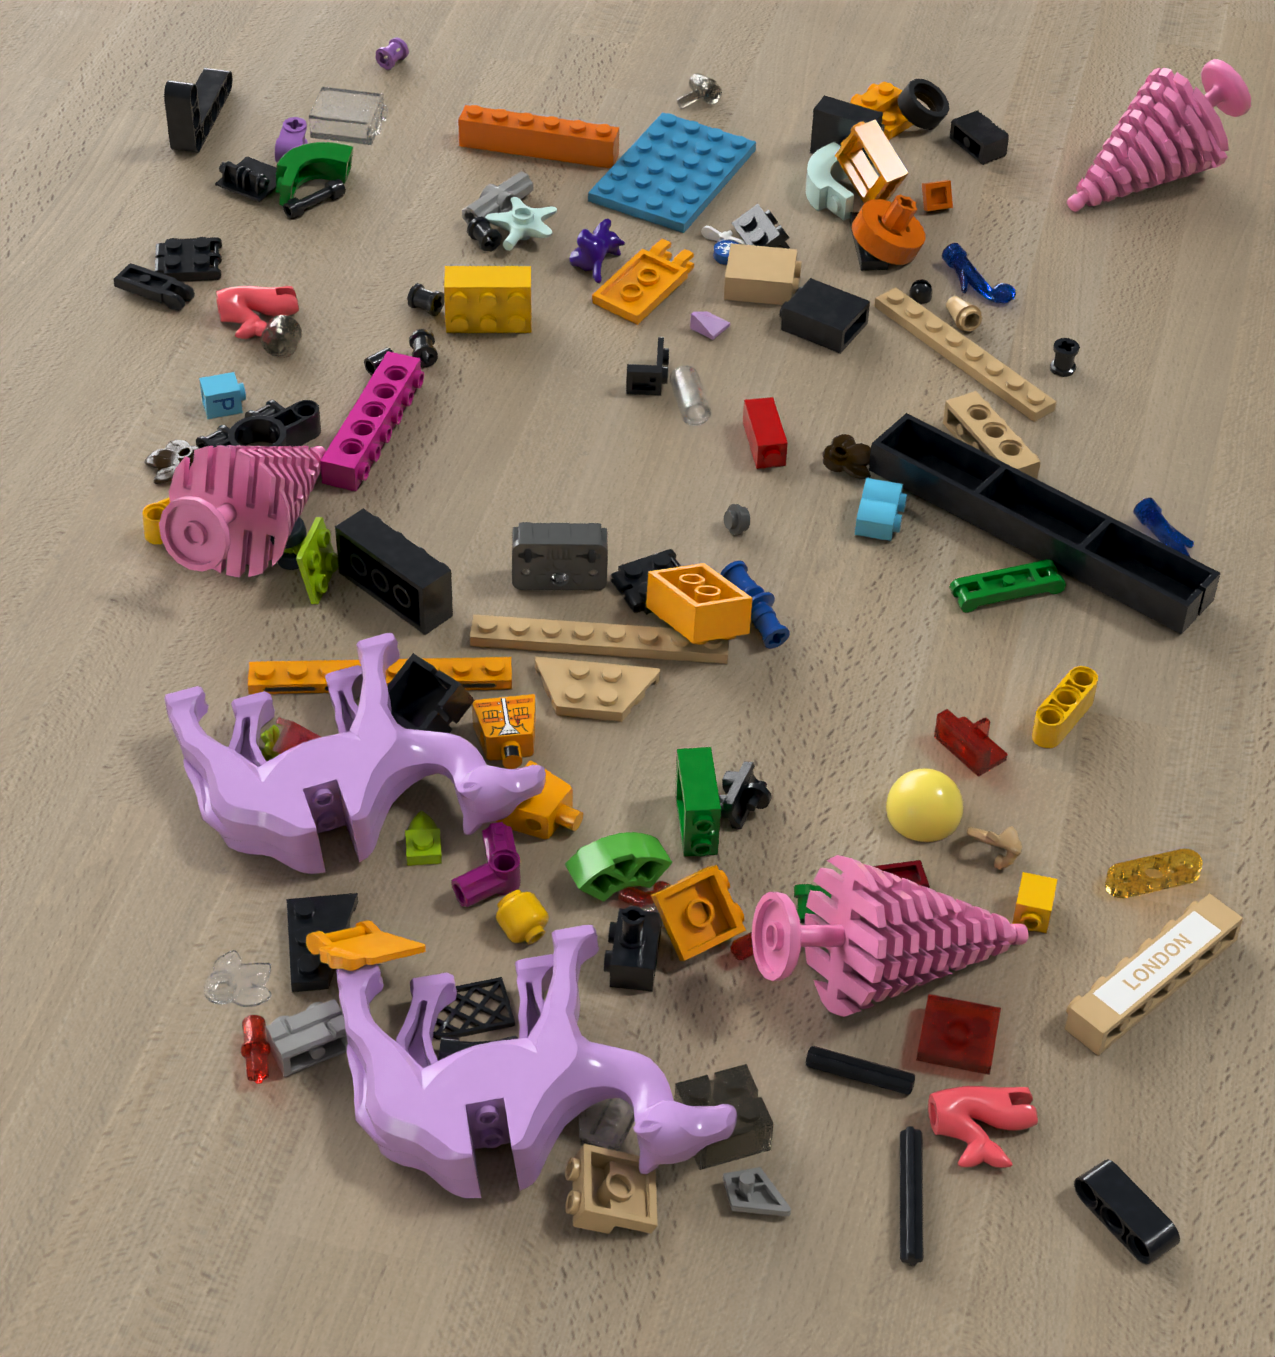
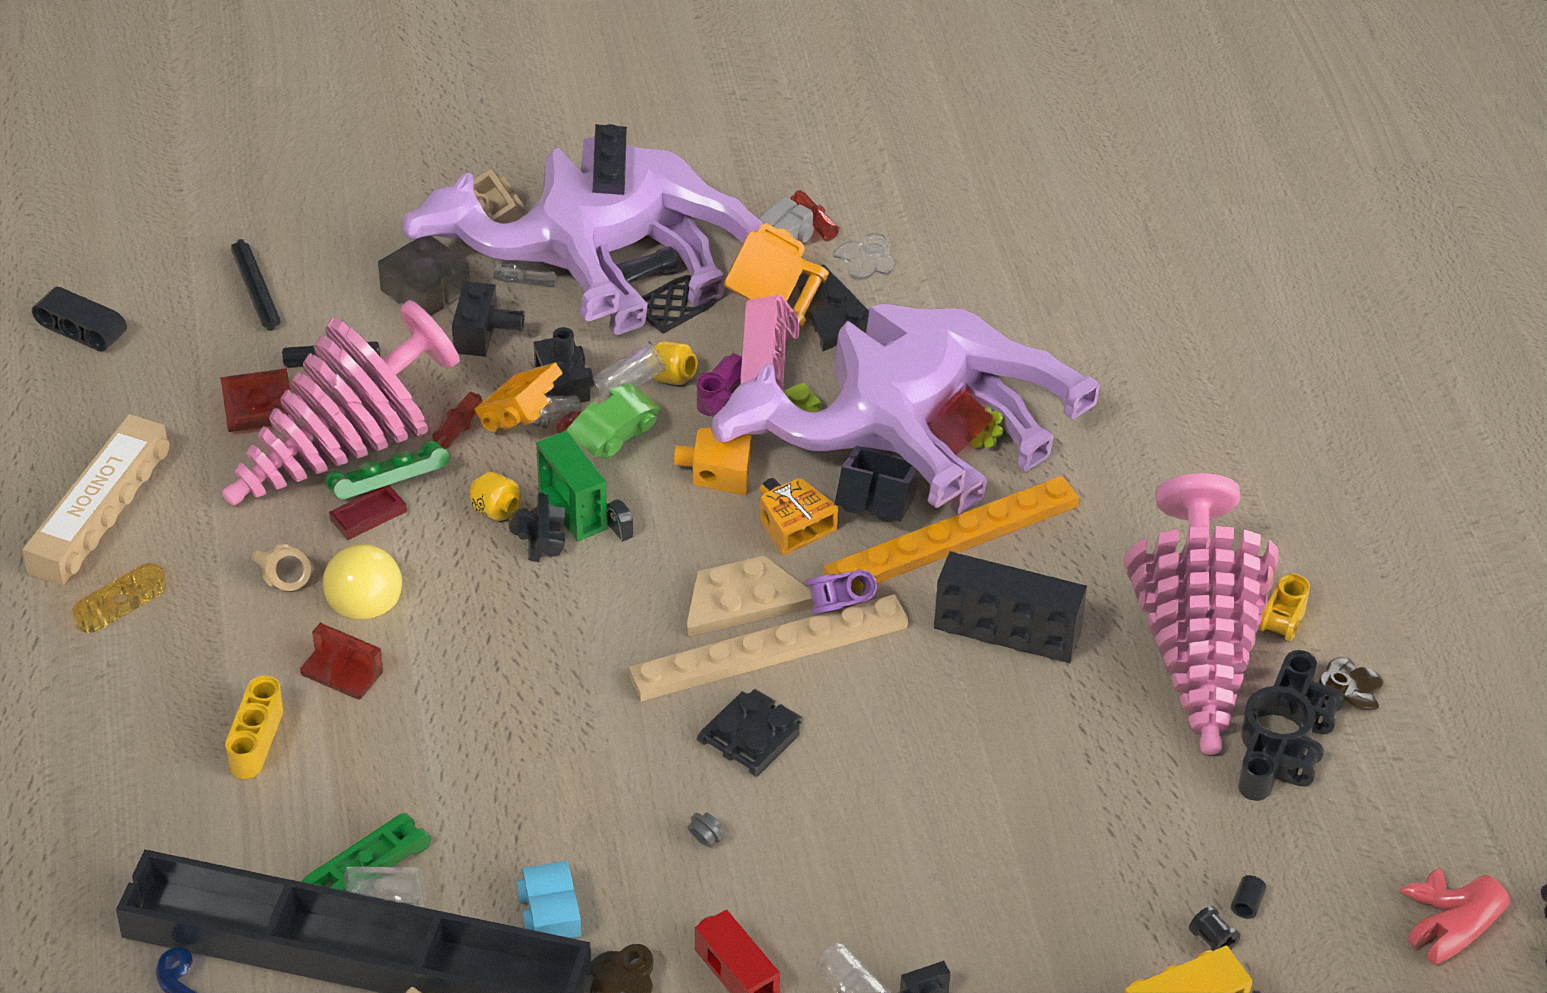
camera: 155 degrees right, 0 degrees up
(222, 395) = (1374, 771): medium azure brick -> none
(281, 336) = (1382, 873): clear smoke head -> none
(311, 555) = (1105, 604): lime plate -> none
(371, 421) = (1187, 806): dark pink brick -> none
(425, 880) = (766, 330): none -> bright pink beam
(464, 1101) = (609, 159): none -> black plate
(509, 640) = (834, 591): none -> medium lavender piece
(559, 556) = (856, 684): dark grey axle -> none
(575, 902) = (631, 369): none -> clear pin
(664, 783) = (620, 519): none -> black tile
(689, 1038) = (477, 318): none -> black brick
(699, 603) = (679, 671): light orange brick -> none
(754, 1193) = (373, 247): light grey piece -> none
(762, 613) = (628, 722): blue piece -> none
(767, 838) = (495, 496): none -> yellow head
(999, 1107) = (221, 346): coral piece -> none
(1000, 550) = (388, 883): none -> clear wing
(1035, 902) = (225, 522): yellow brick -> none

